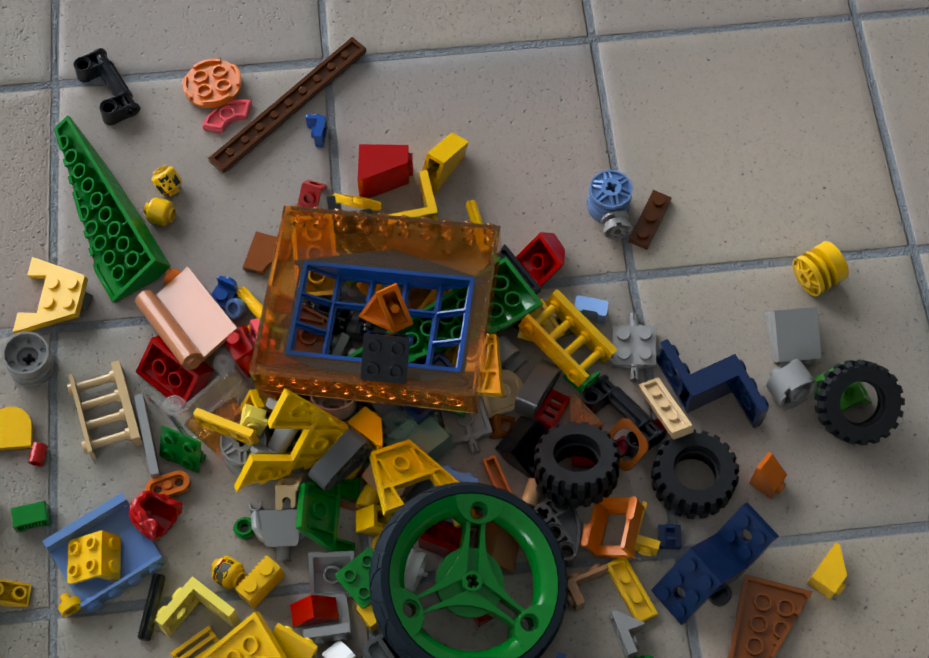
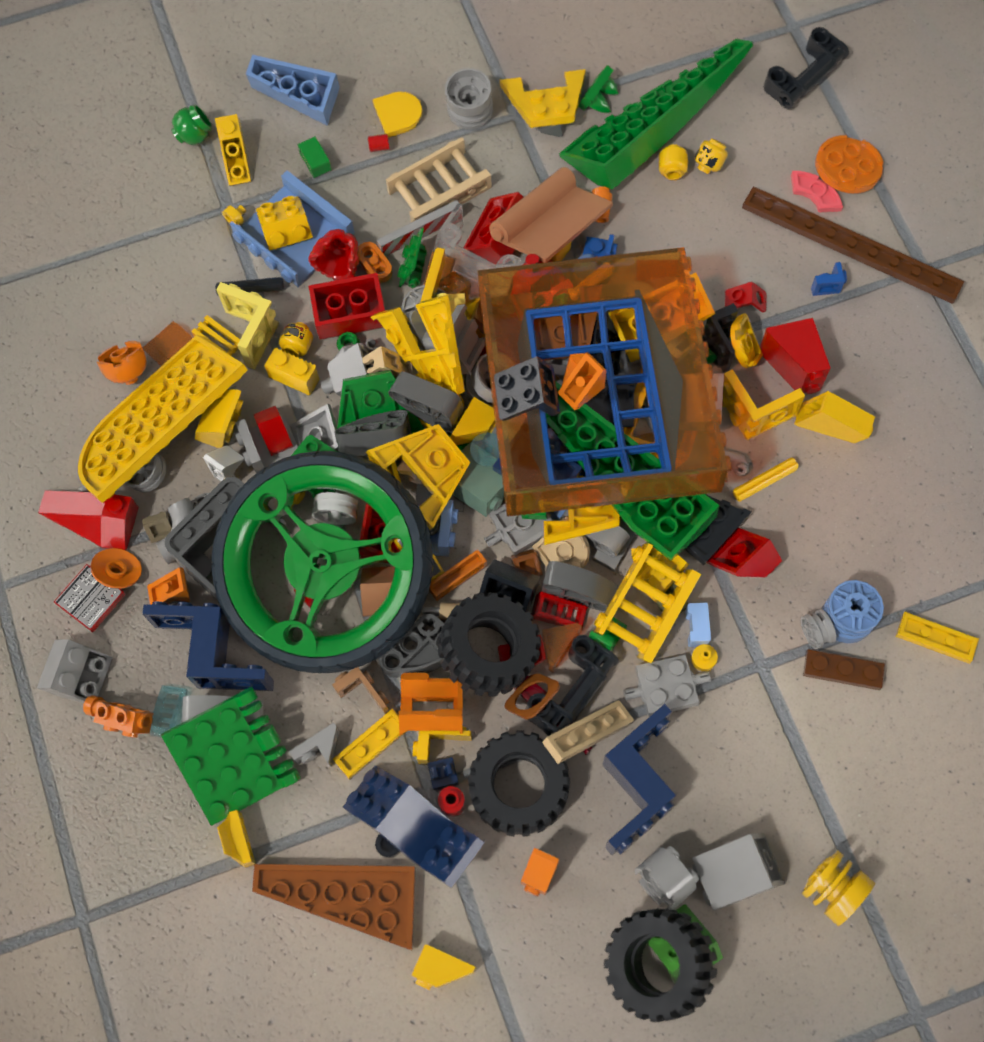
camera: 80 degrees right, 5 degrees up
(55, 250) = (594, 98): none -> green tile
(209, 516) = (346, 305): none -> red brick
(355, 514) = (372, 432): none -> dark grey beam
(617, 313) = (702, 662): none -> yellow tile
(639, 150) = (937, 637): none -> yellow tile
(697, 530) = (451, 809): none -> red brick

